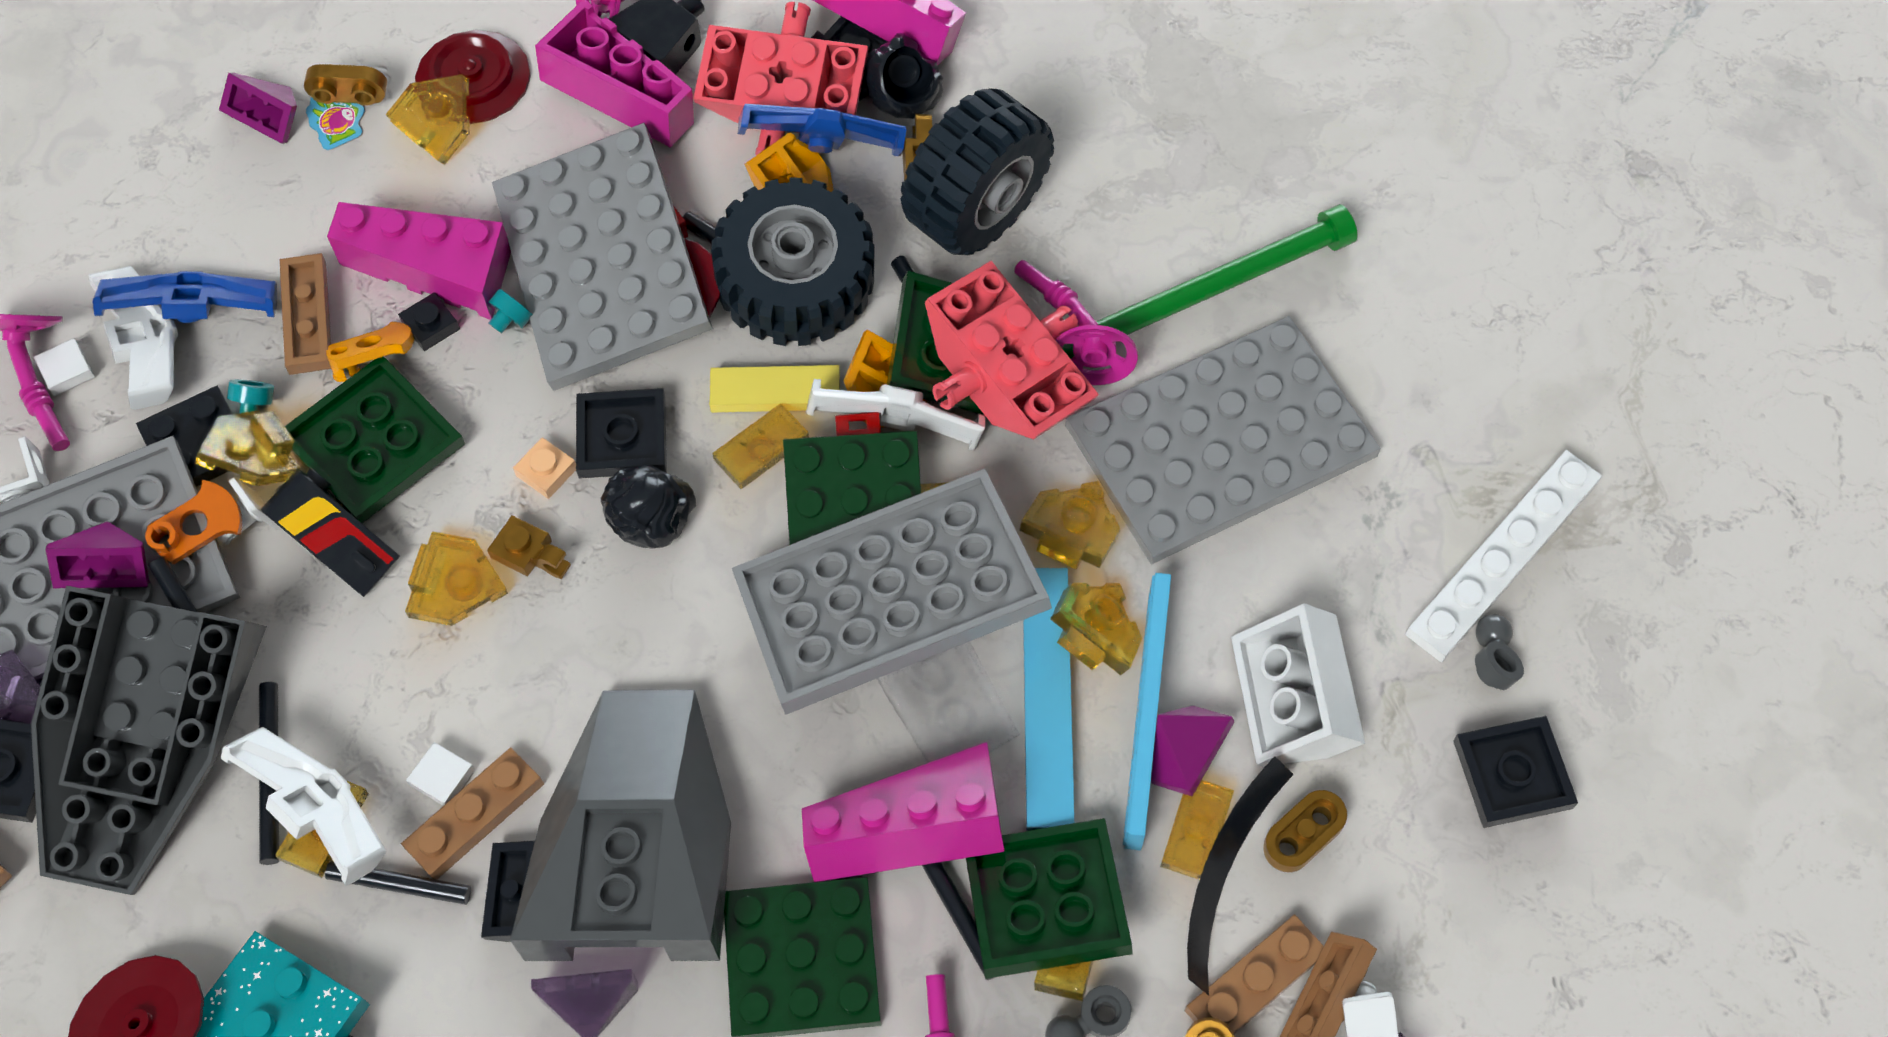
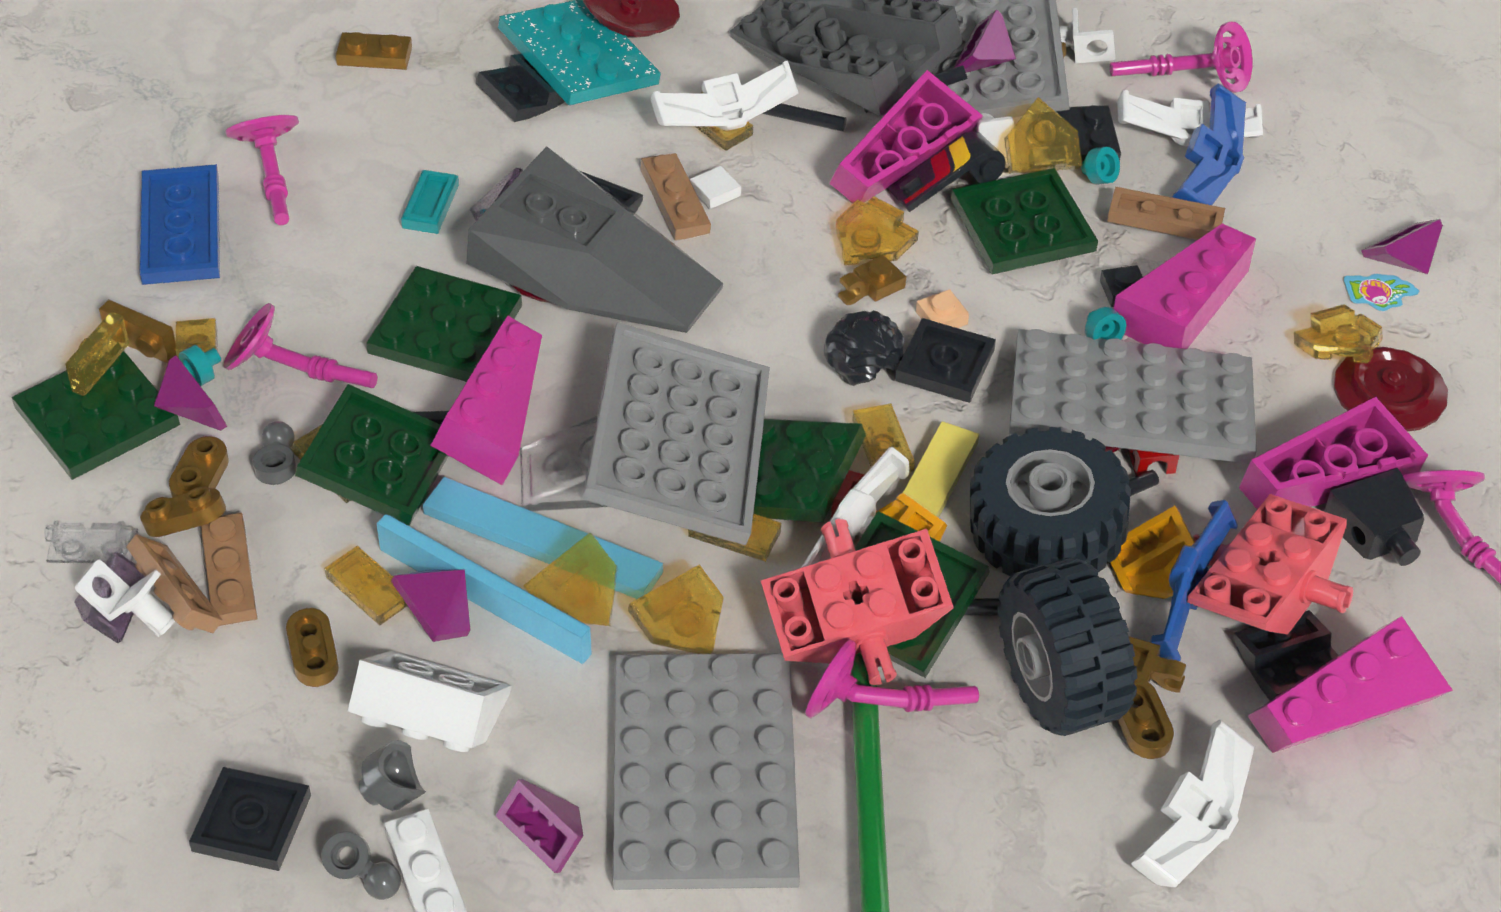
camera: 115 degrees right, 15 degrees down
(64, 367) = (1185, 84): white tile -> none
(222, 518) = (983, 84): orange piece -> none
(304, 583) = (906, 136): none -> dark pink wedge
(345, 84) = (1405, 282): pearl gold plate -> none
(349, 353) = (1105, 221): light orange piece -> none
(407, 884) = (646, 150): black bar -> none
(902, 79) = (1235, 669): black hair -> none
(1051, 69) = (1201, 809): none -> white plate
(1220, 861) = (315, 569): black sticker -> none
(1359, 526) = (542, 822): none -> magenta slope
(1406, 667) = (390, 777): none -> dark grey piece

